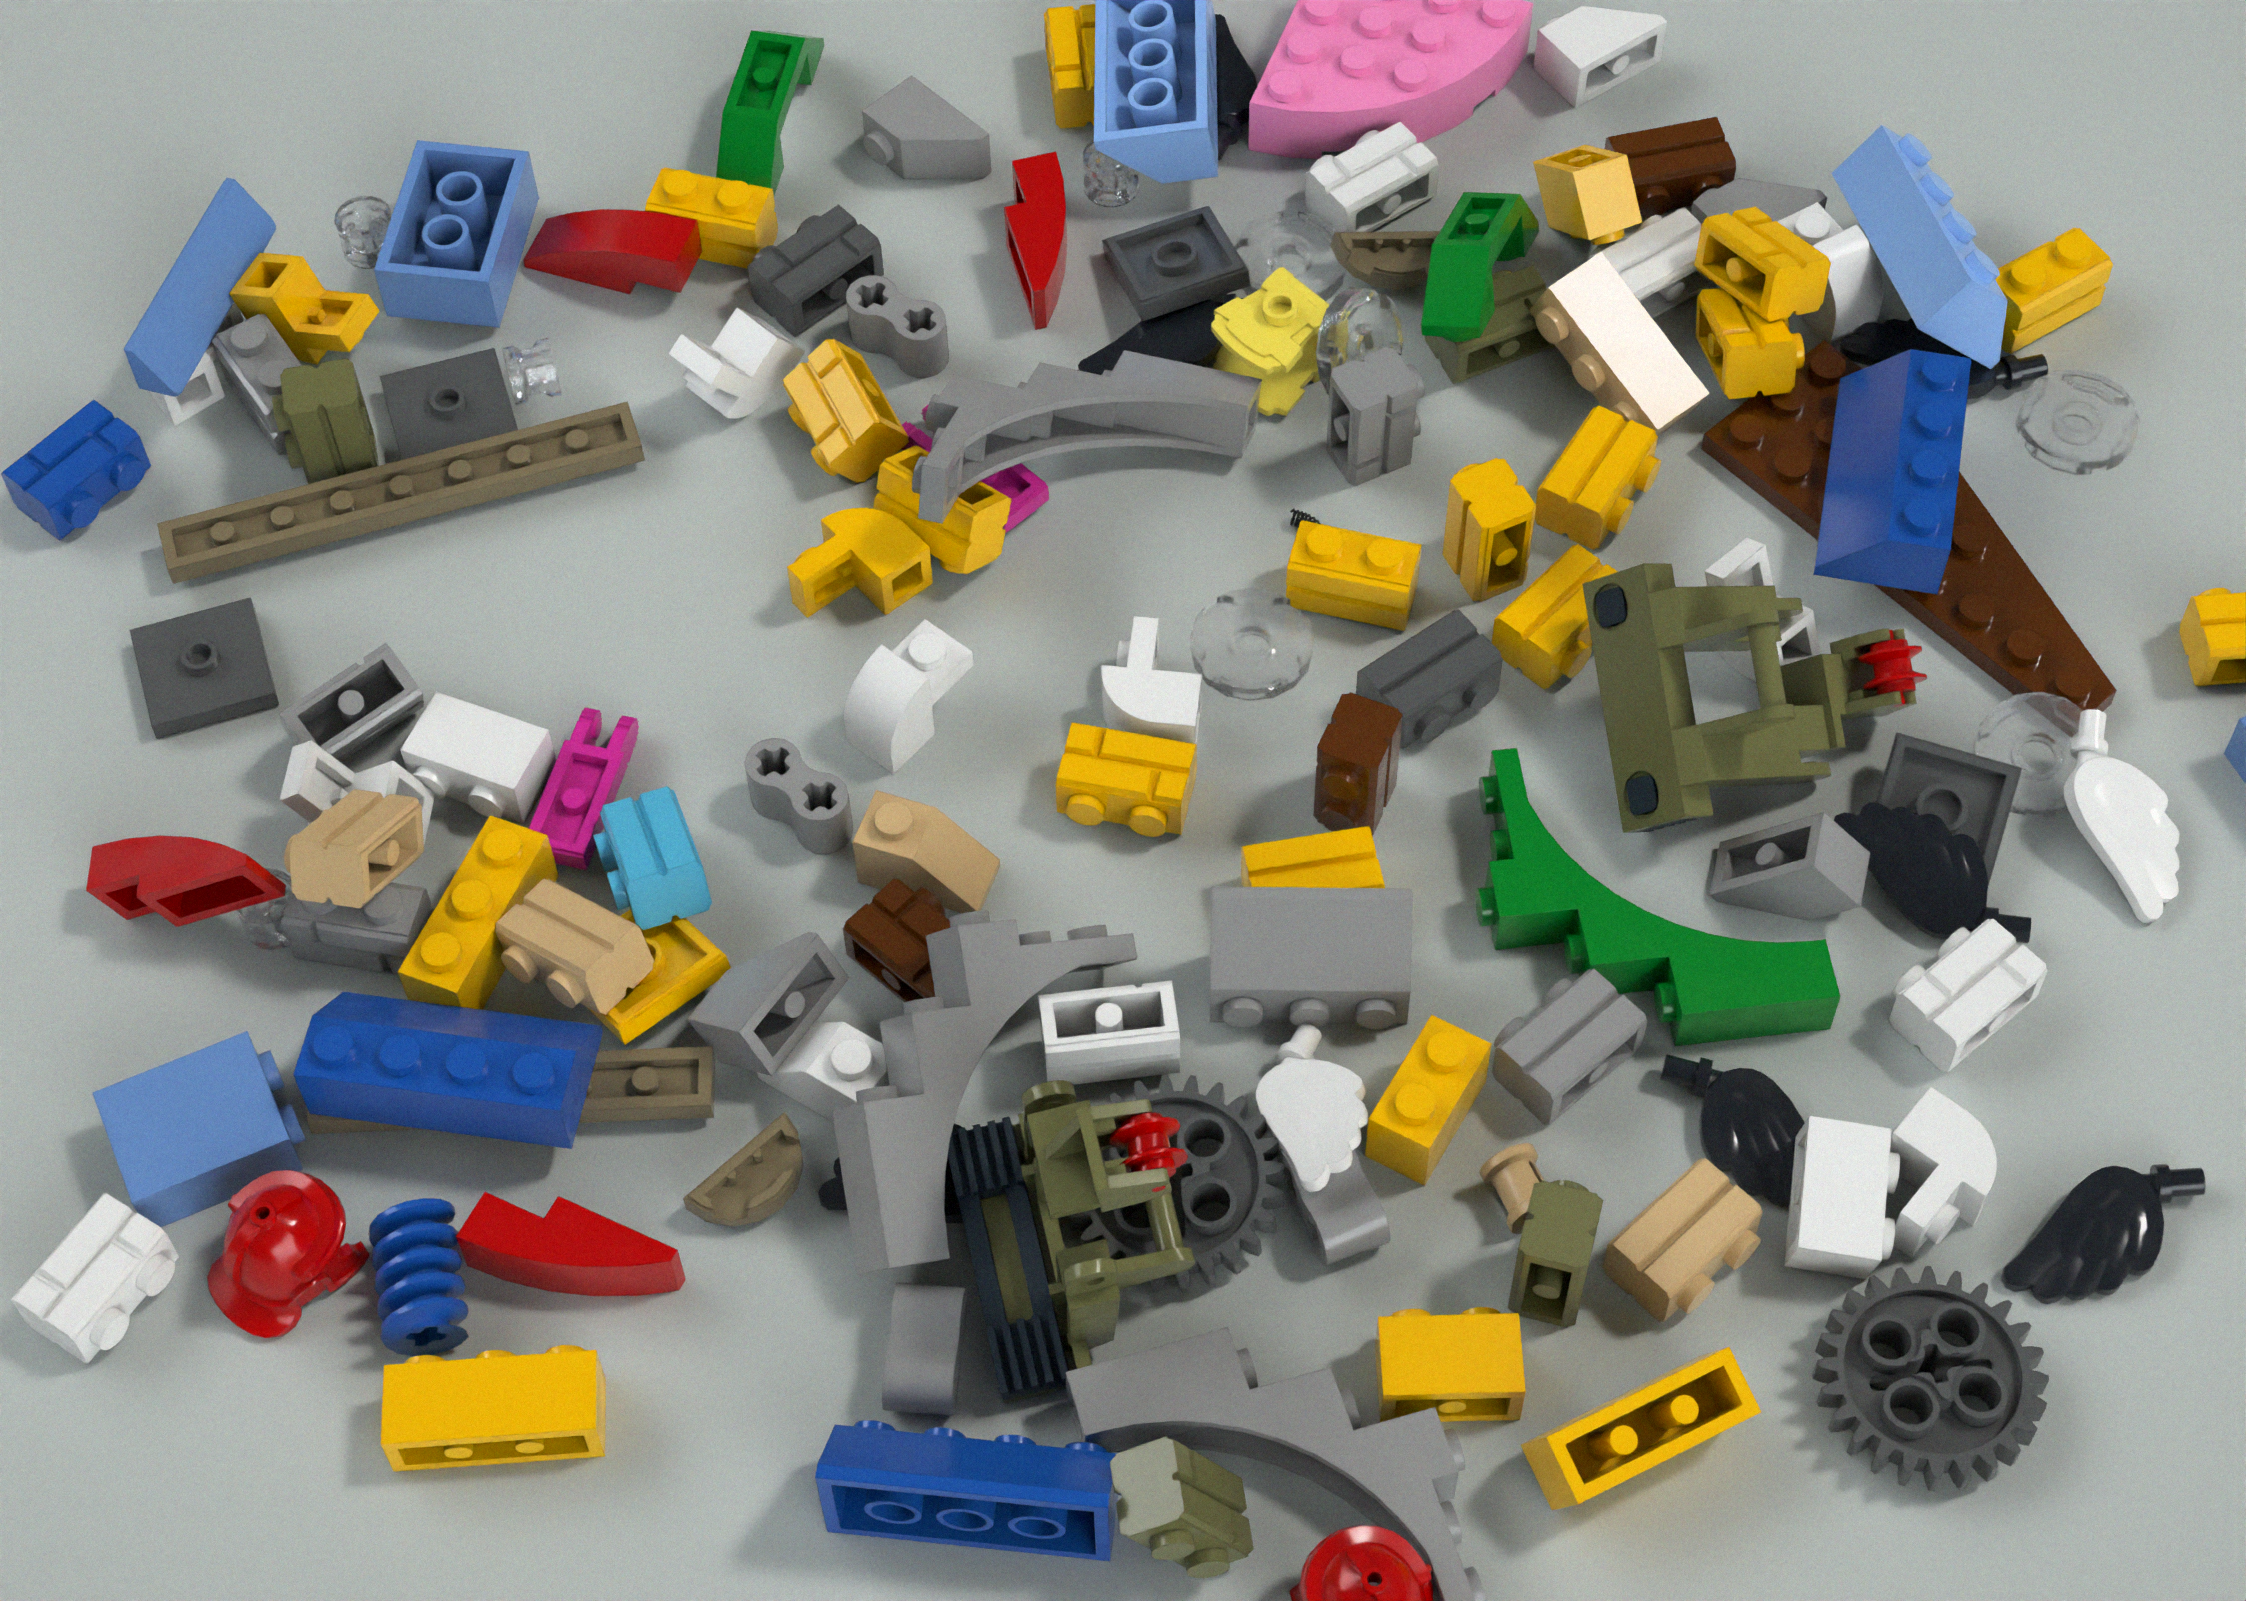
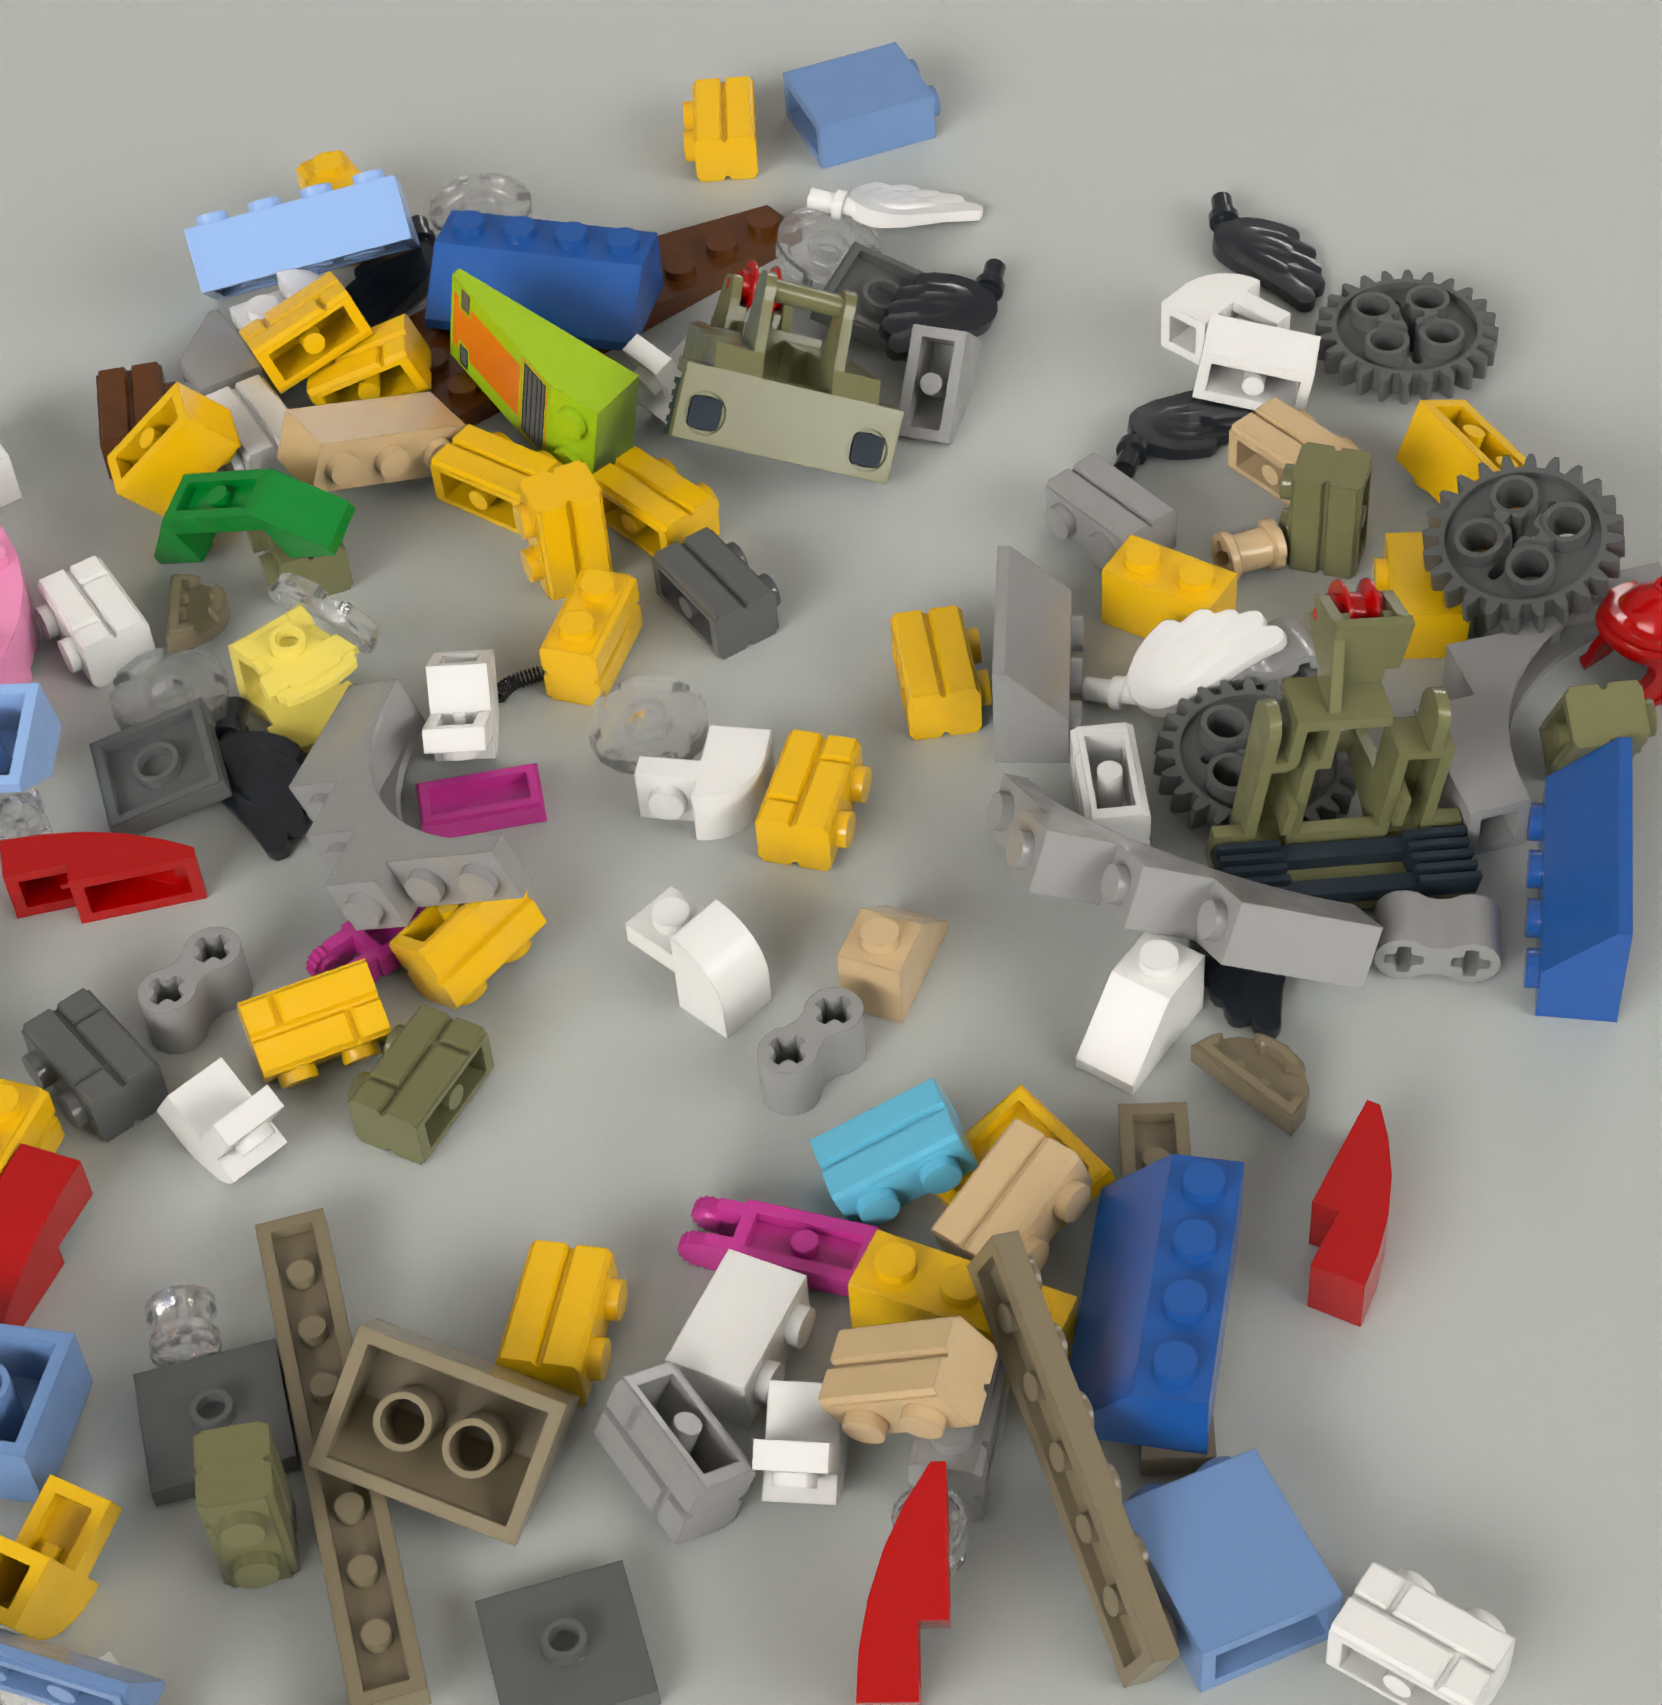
camera: 85 degrees left, 10 degrees down
(252, 363) = (149, 1597): light grey brick -> none
(281, 1252) = (1377, 1465): red helmet -> none
(304, 974) = (1079, 1477): none -> dark tan plate
(396, 548) = (443, 1430): none -> dark tan slope
(418, 1277) = (1395, 1332): blue piece -> none
(493, 1409) = (1538, 1266): yellow brick -> none
(508, 627) = (564, 1316): none -> yellow brick
(769, 1003) = (1079, 1057): light grey slope -> none
(775, 497) = (420, 1083): none -> olive brick
(862, 551) = (514, 999): yellow brick -> none
(891, 938) = (1006, 951): reddish brown brick -> none
(1145, 518) = (481, 801): none -> dark pink tile
(1242, 483) = (462, 706): none -> white brick
(1357, 763) = (827, 620): reddish brown brick -> none
(1373, 415) = (414, 601): light grey brick -> none
(1418, 1481) = (1550, 506): none -> dark grey gear
(1700, 981) = (1000, 491): green arch -> none
(1701, 478) = (543, 378): none -> lime slope
(1966, 993) = (1060, 296): white brick -> none

